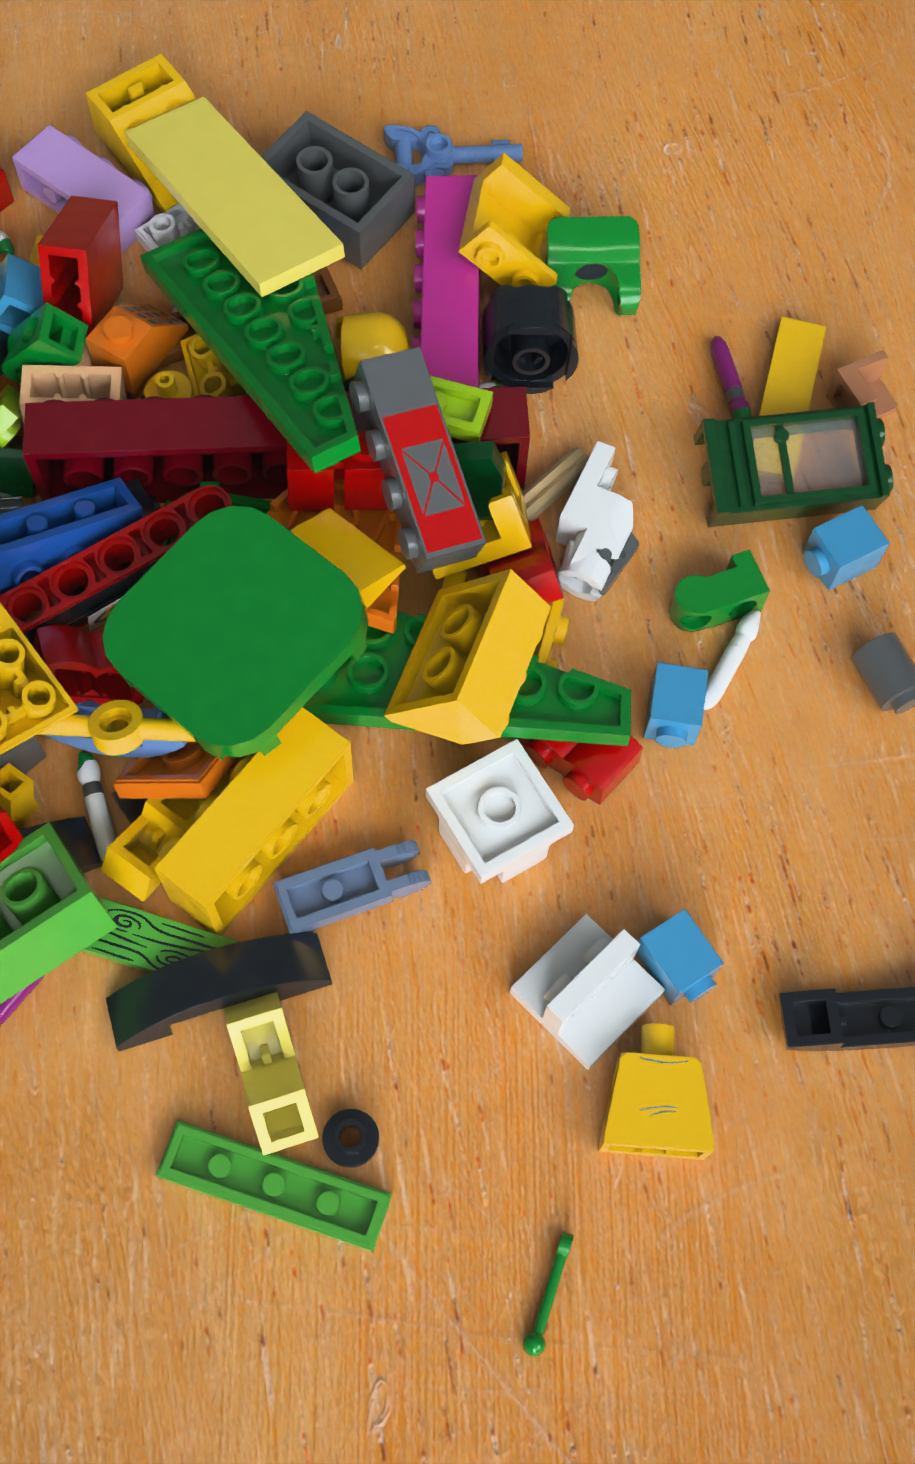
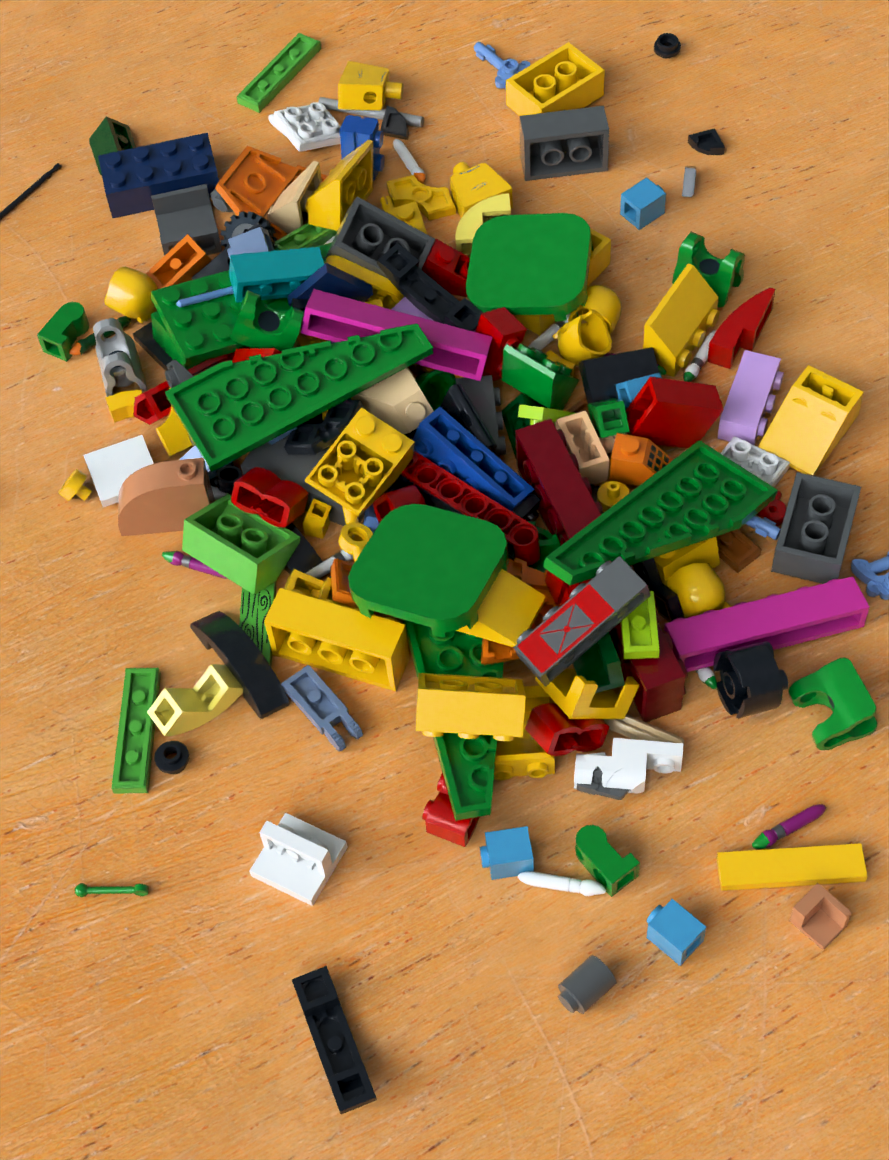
camera: 80 degrees right, 10 degrees down
(235, 196) = (760, 468): light yellow tile -> none
(498, 814) = (389, 767): white panel -> none
(509, 225) = (829, 633): yellow panel -> none
(657, 1102) = (236, 912): yellow torso -> none
(679, 958) = (332, 901): dark azure brick -> none
(794, 464) = (726, 877): dark green door -> none

